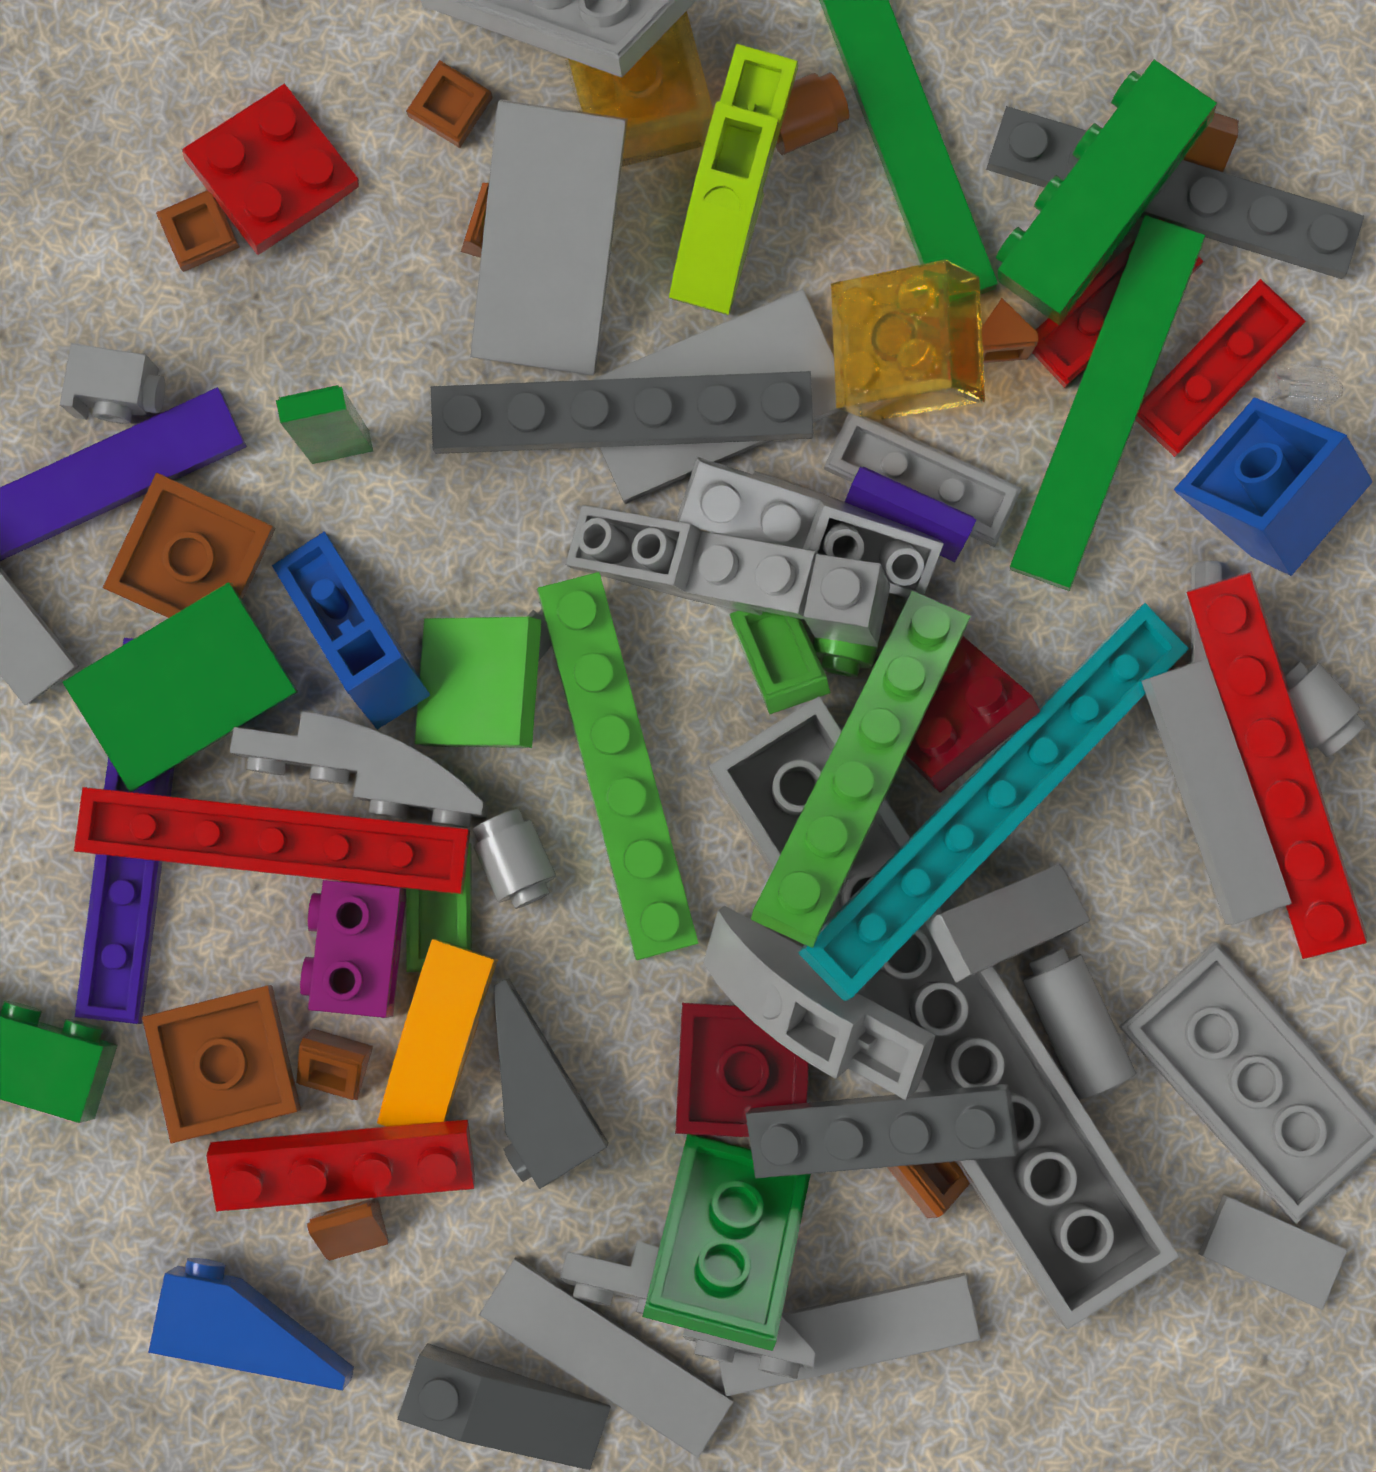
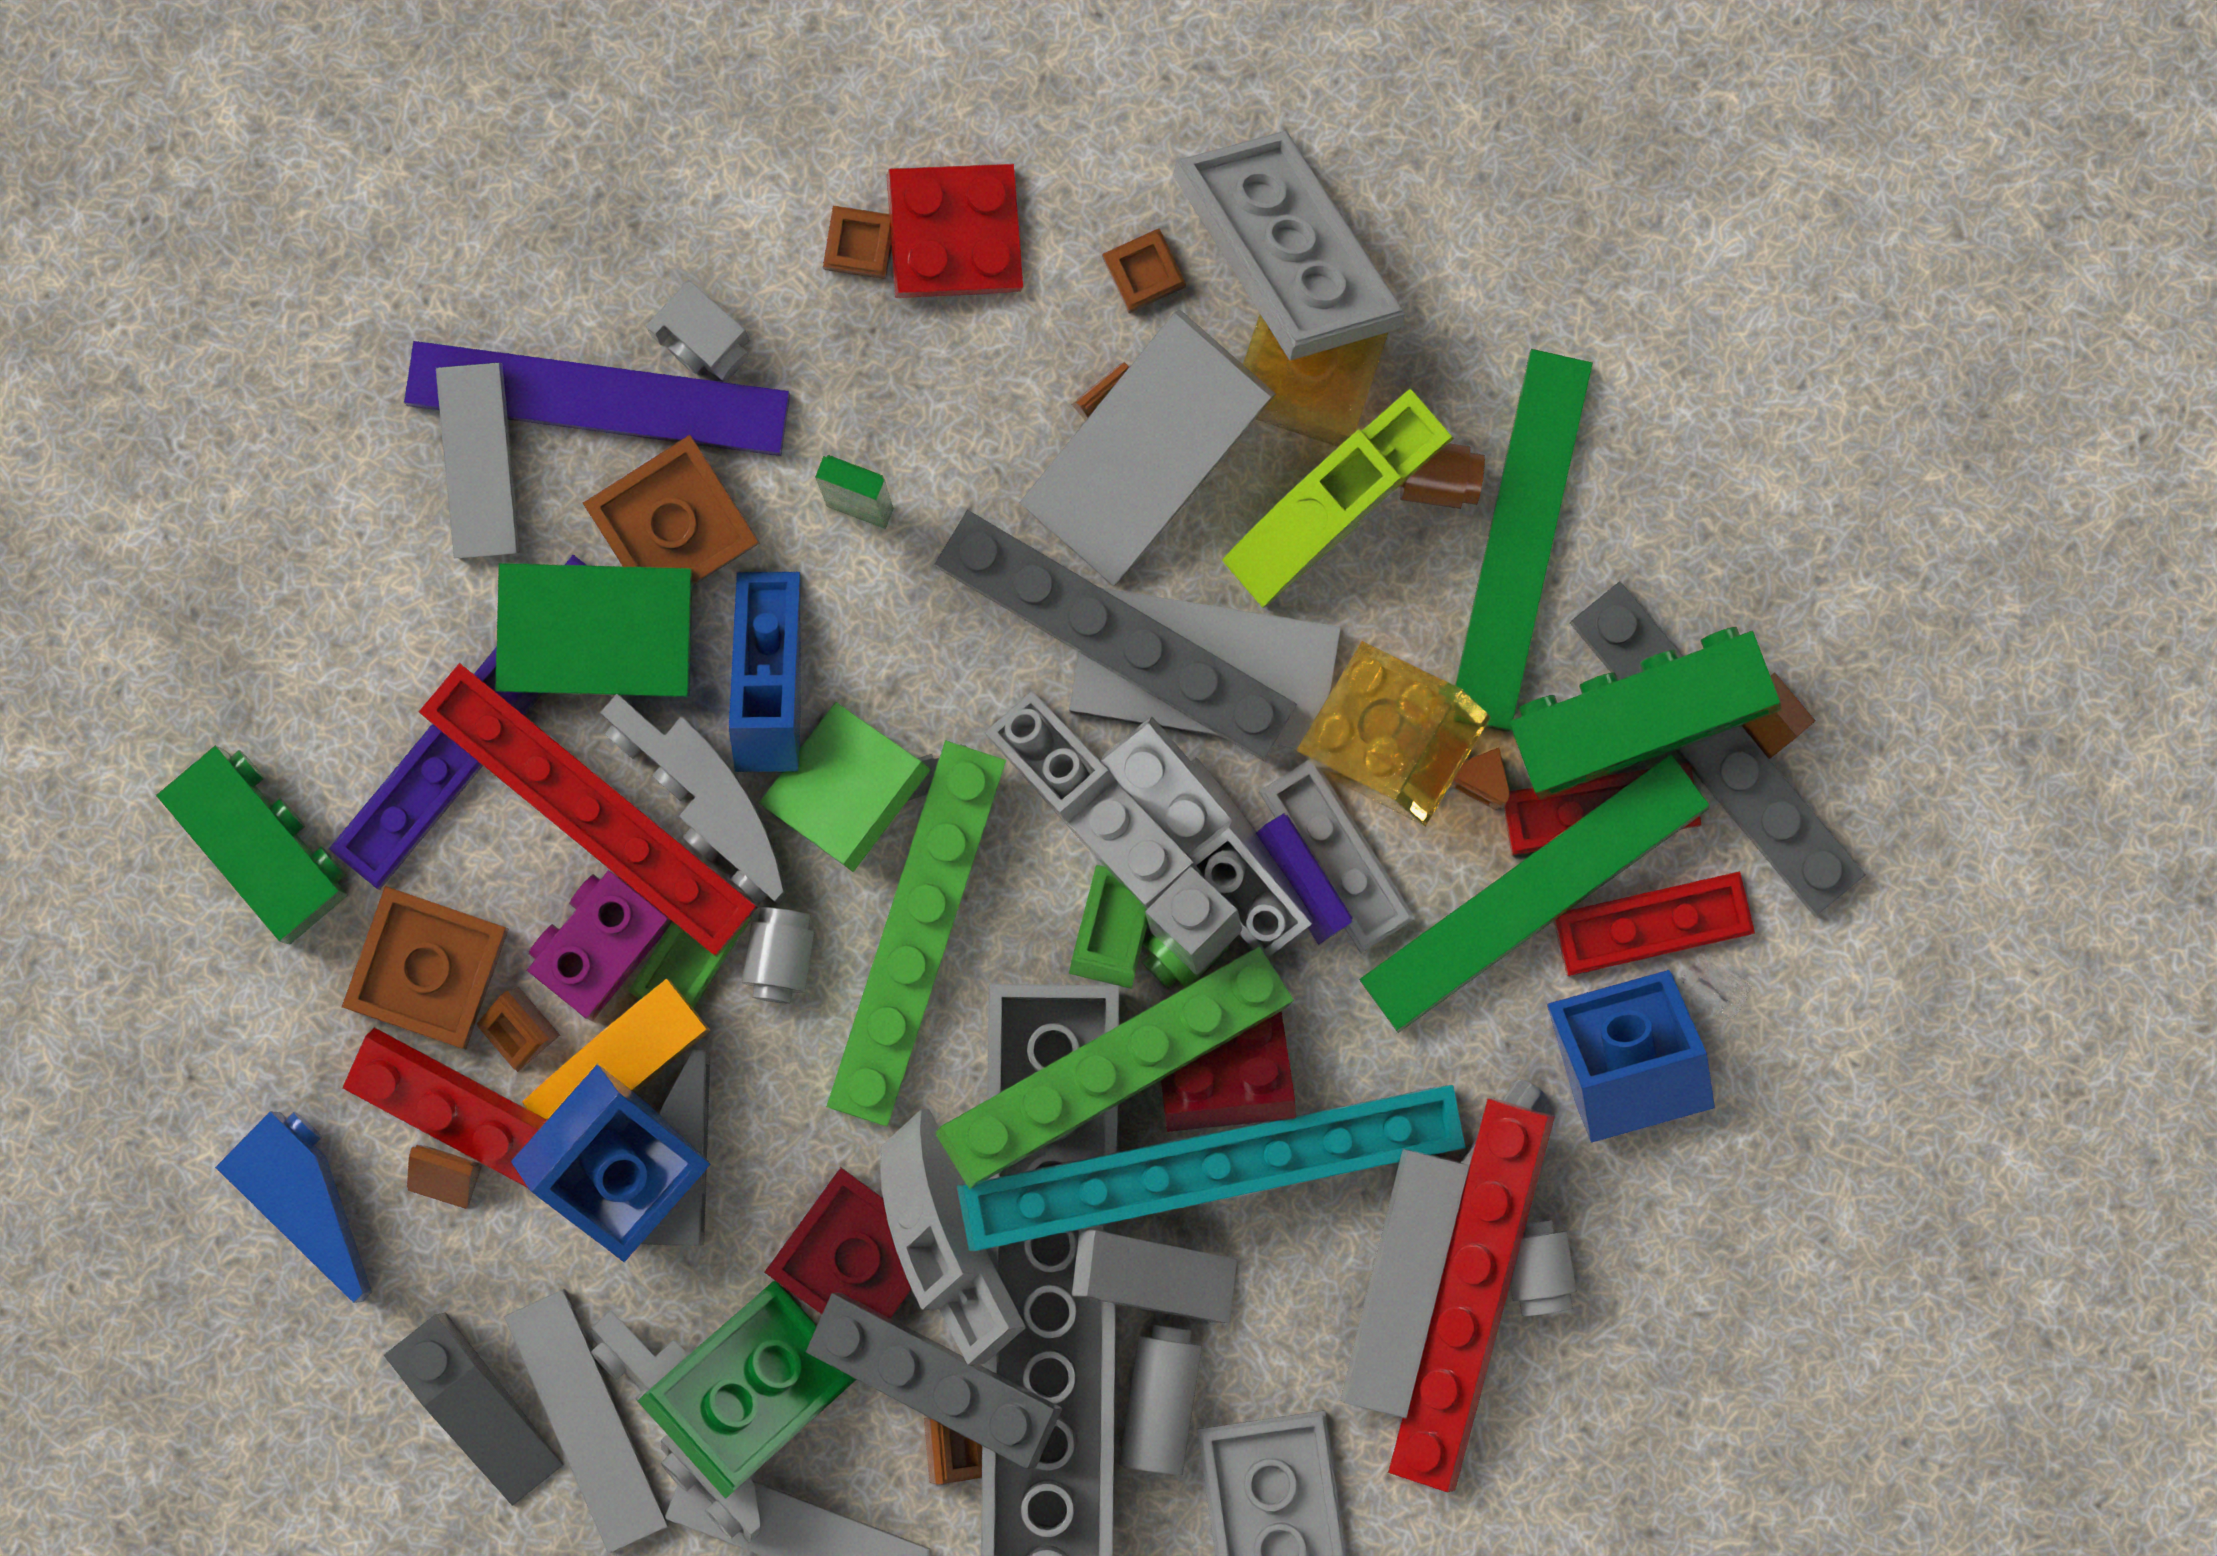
camera: 30 degrees right, 0 degrees up
(485, 1128) = (609, 1163): none -> blue slope

